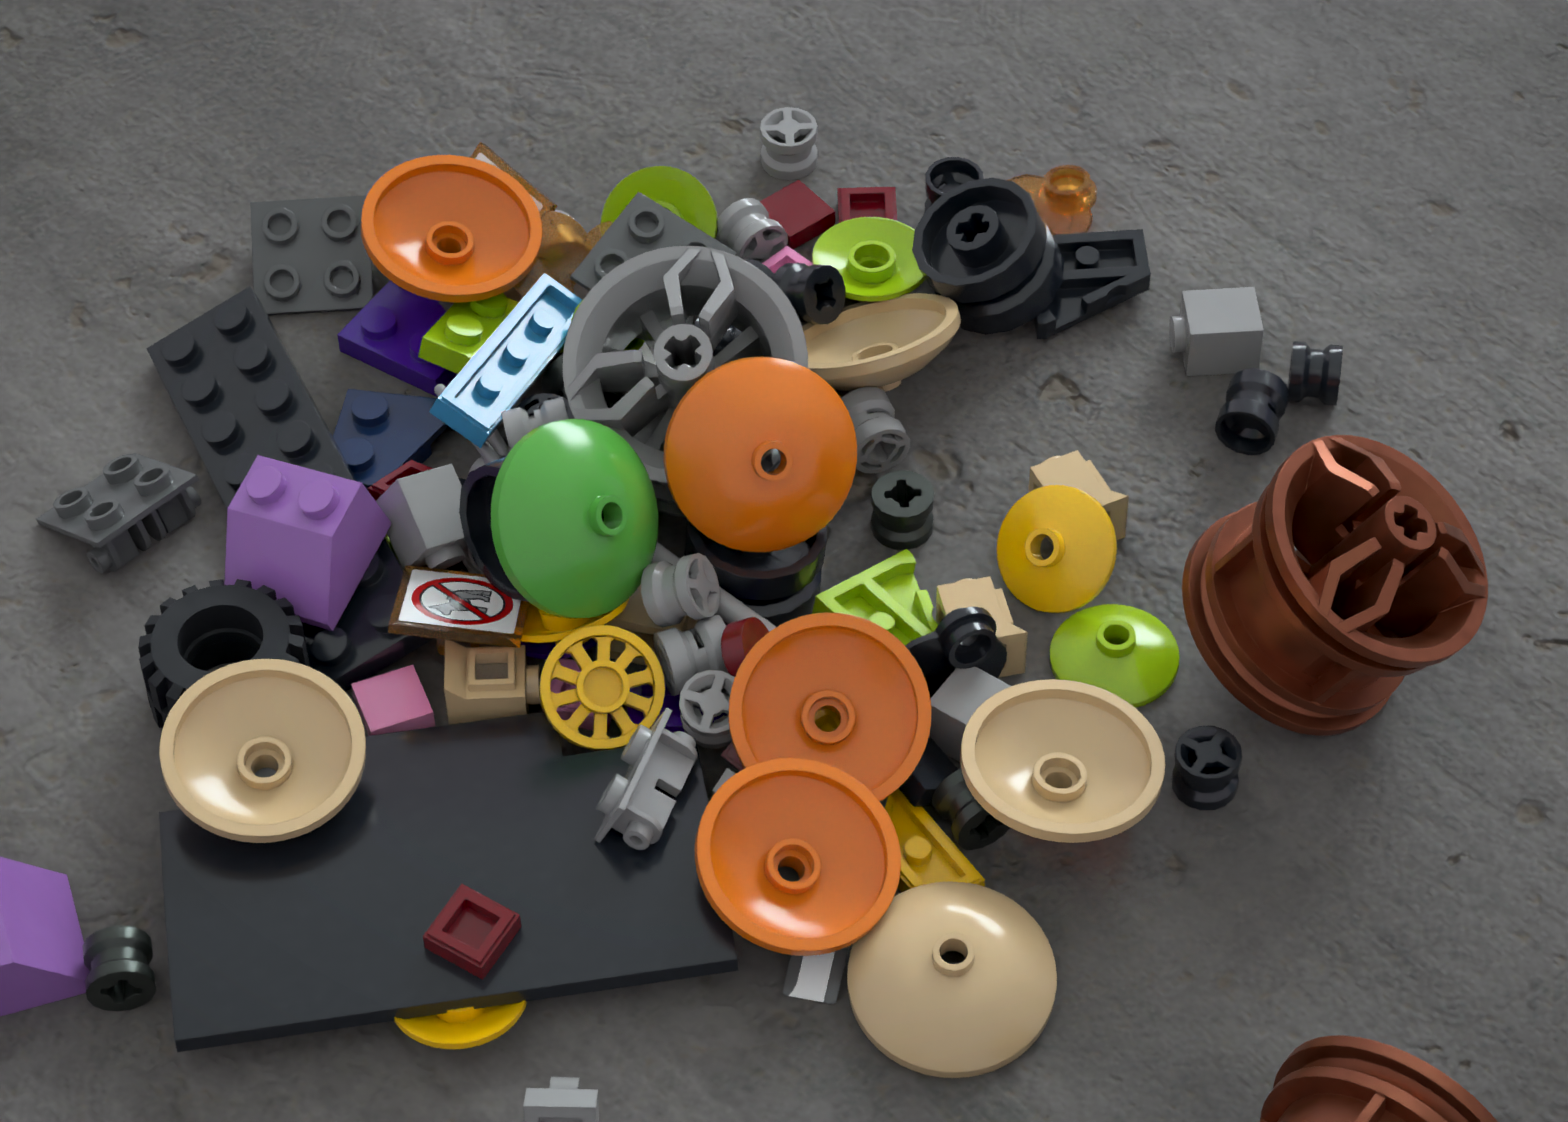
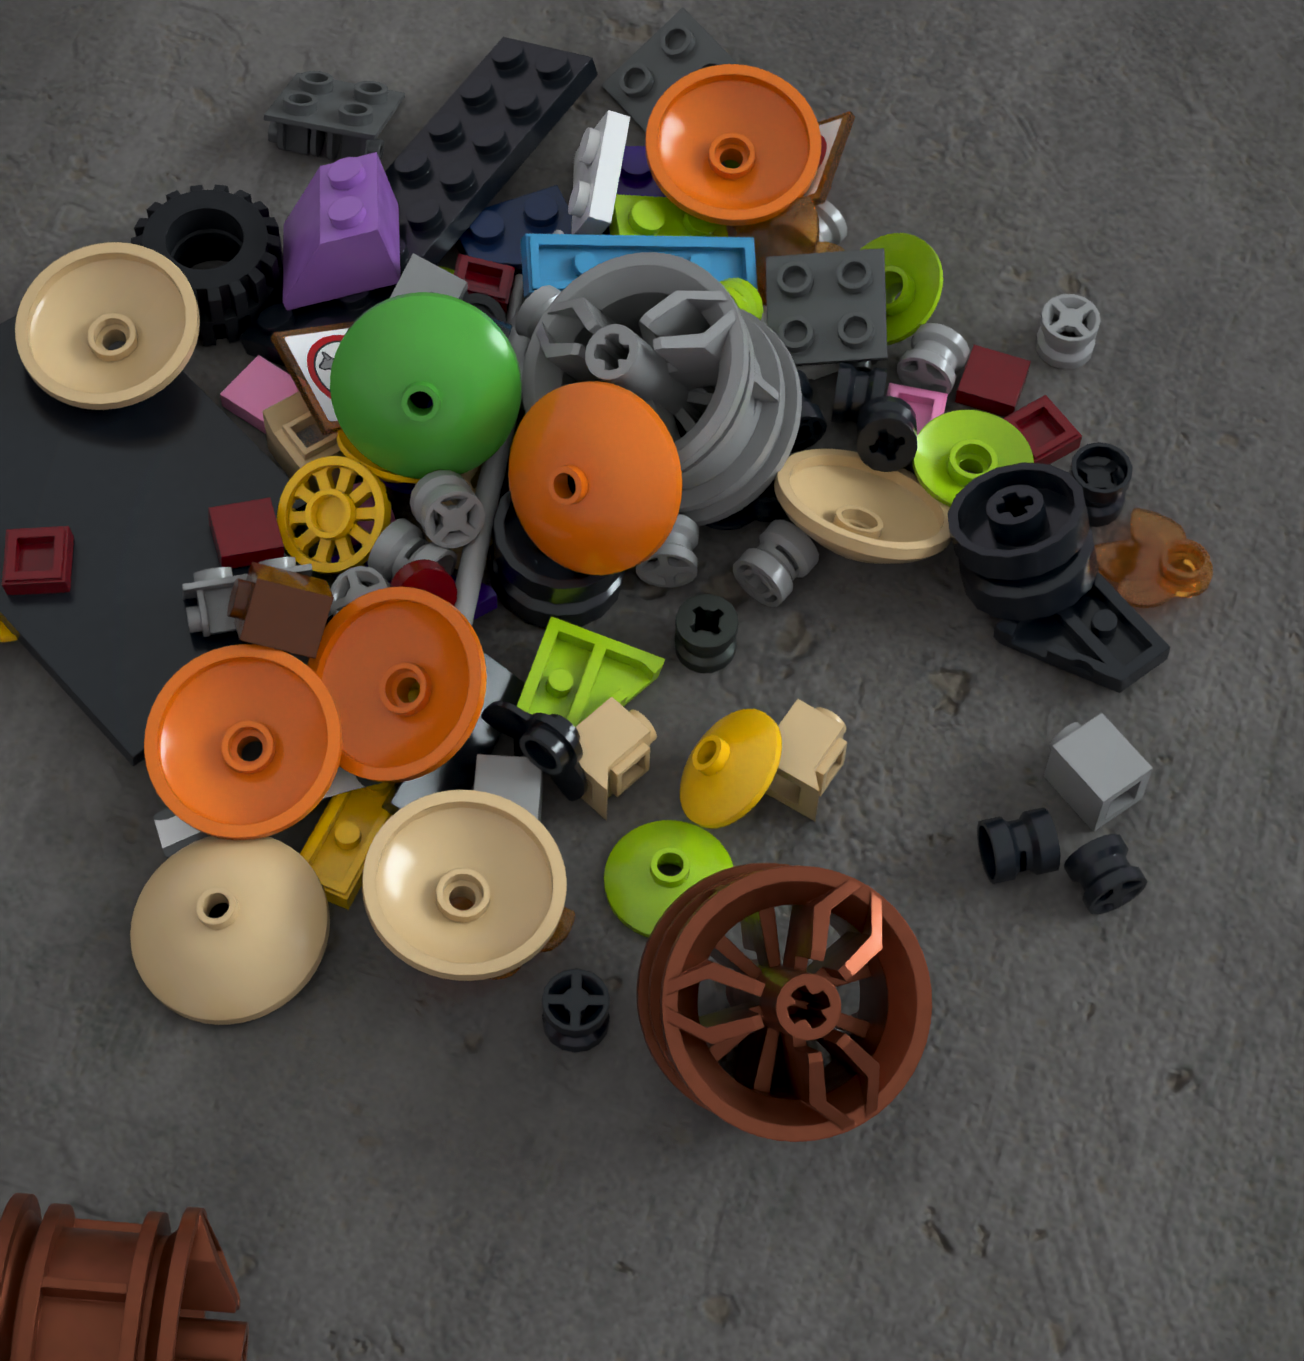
camera: 55 degrees right, 10 degrees up
(384, 344) = (597, 174): none -> white wing
(568, 761) = (245, 532): none -> dark red tile
(701, 748) = (280, 609): none -> reddish brown brick

